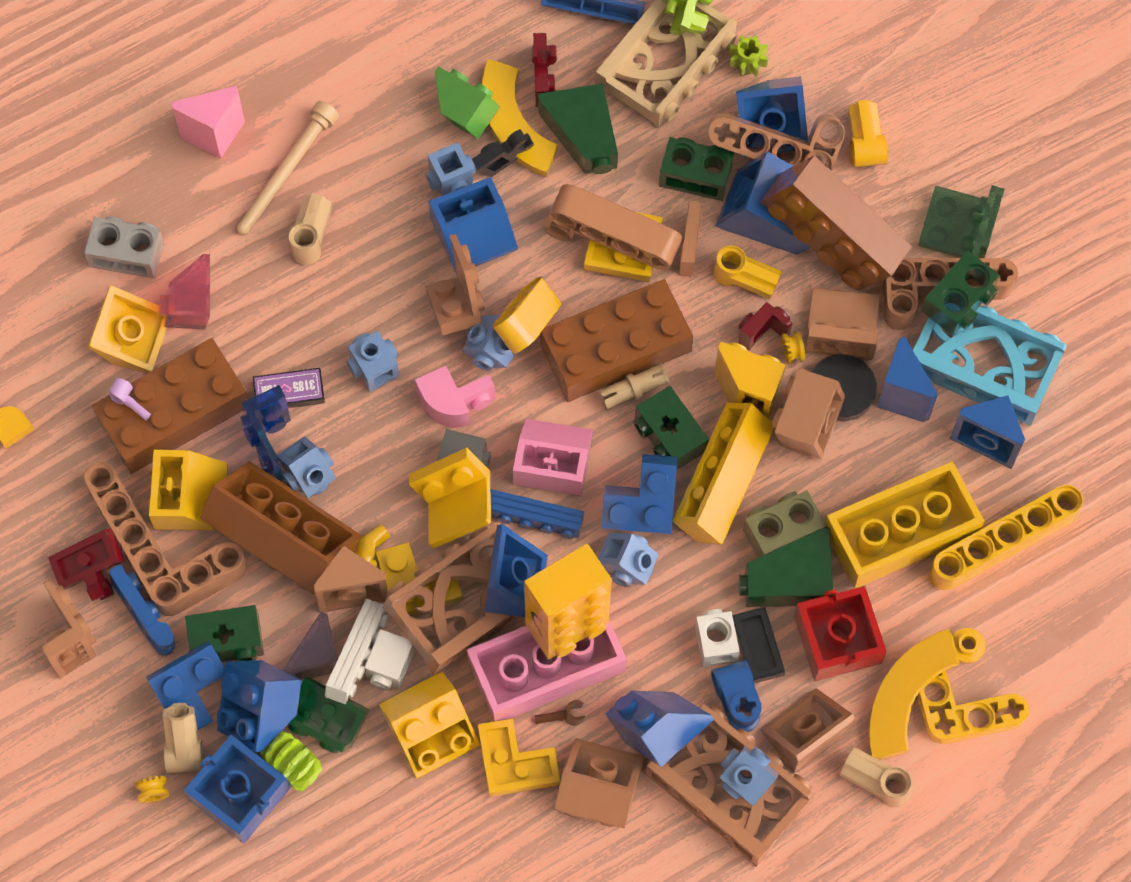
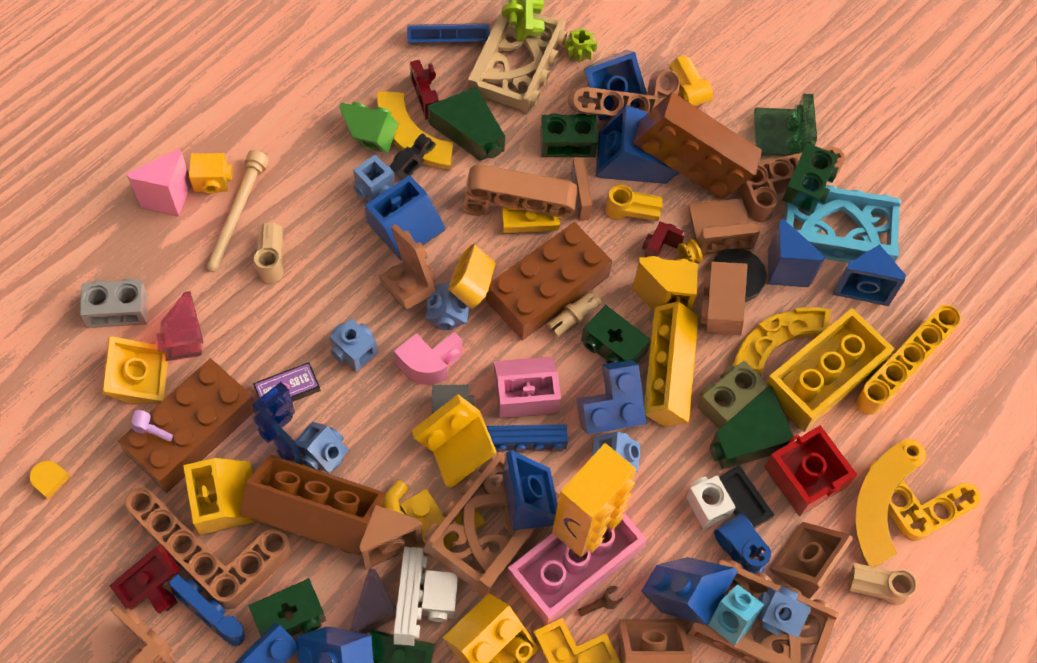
camera: 20 degrees left, 5 degrees down
(267, 116) = (210, 172): none -> yellow brick
(695, 764) = (736, 614): none -> medium azure brick
(864, 466) = (779, 330): none -> yellow tile

